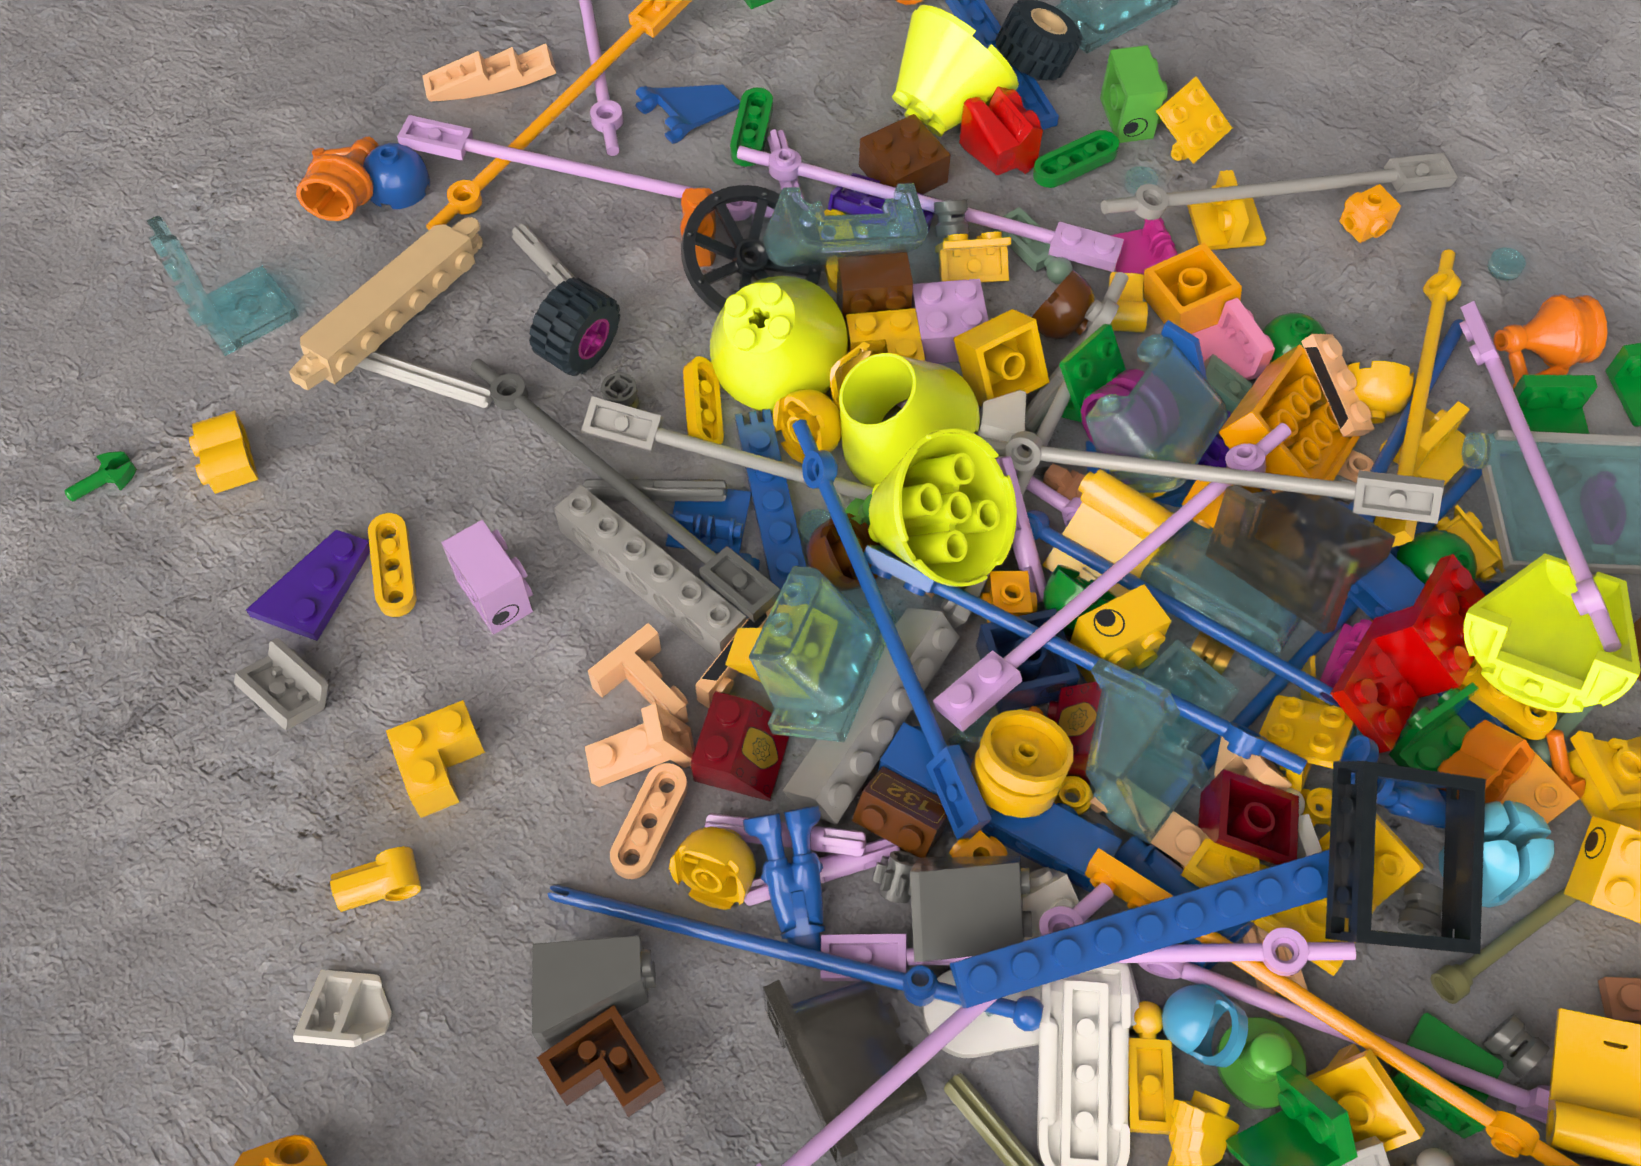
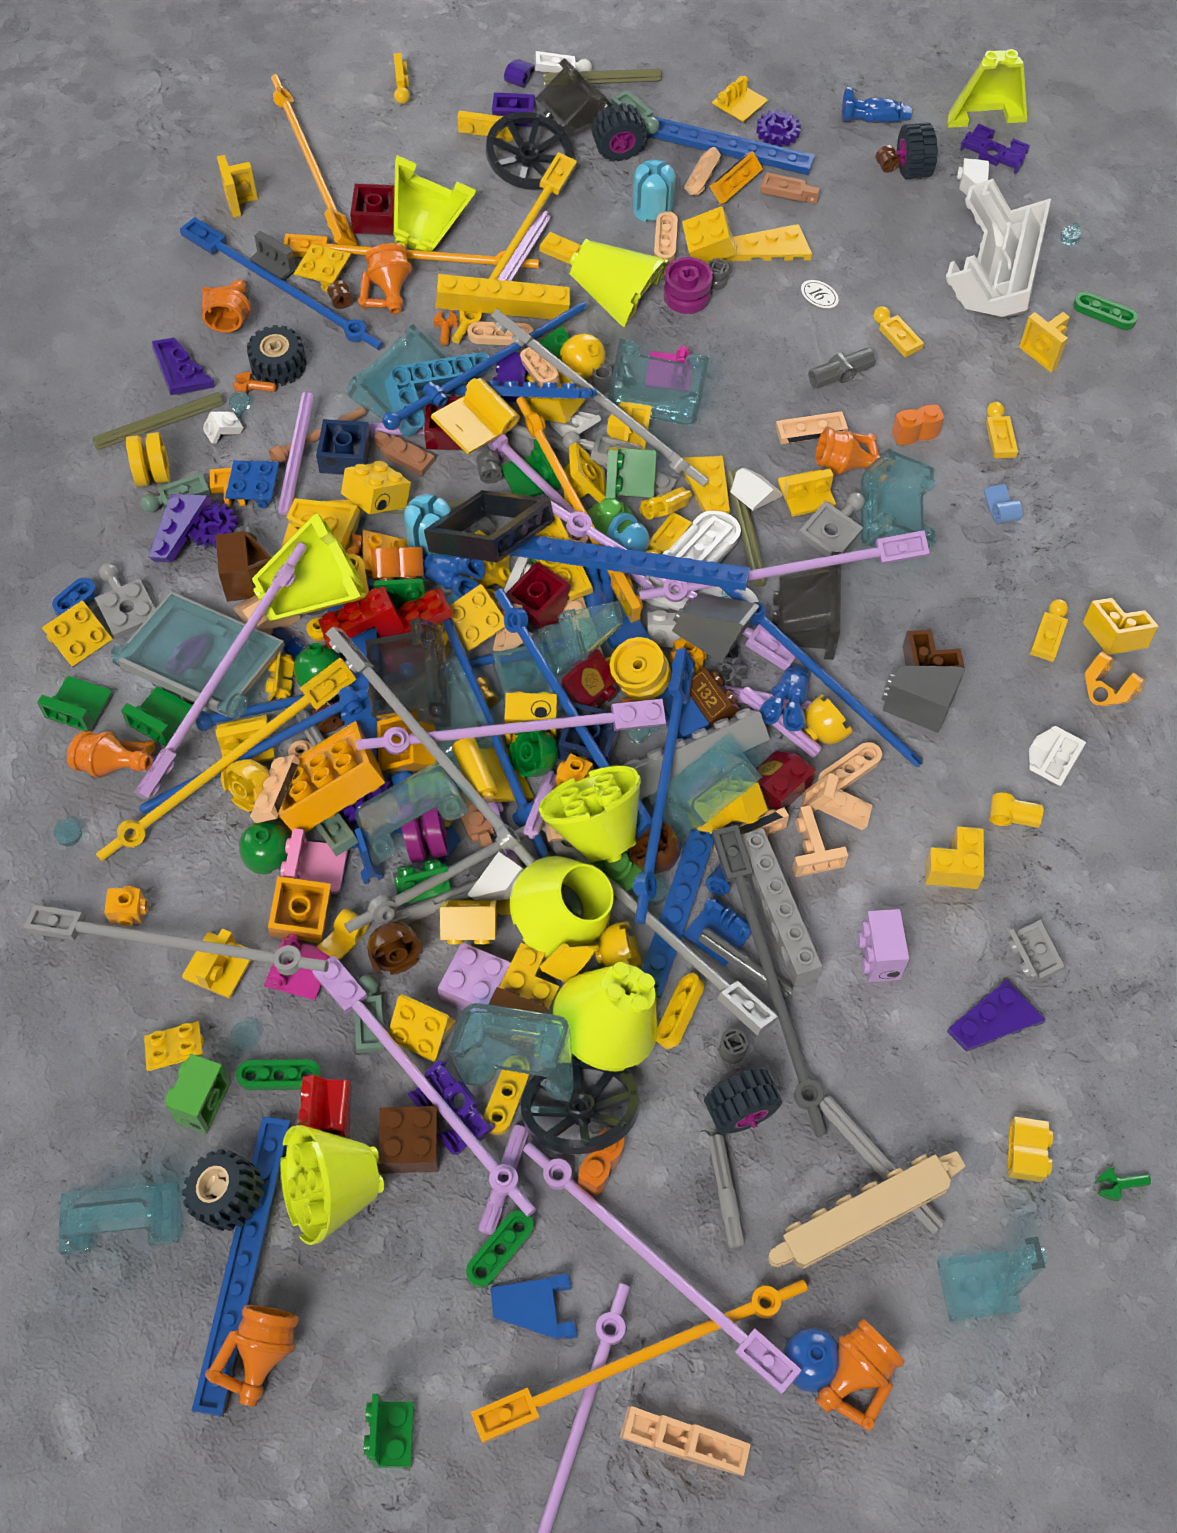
camera: 150 degrees left, 0 degrees up
(387, 553) = (941, 993): yellow plate -> none
(951, 217) = (420, 1050): dark grey wheel -> none

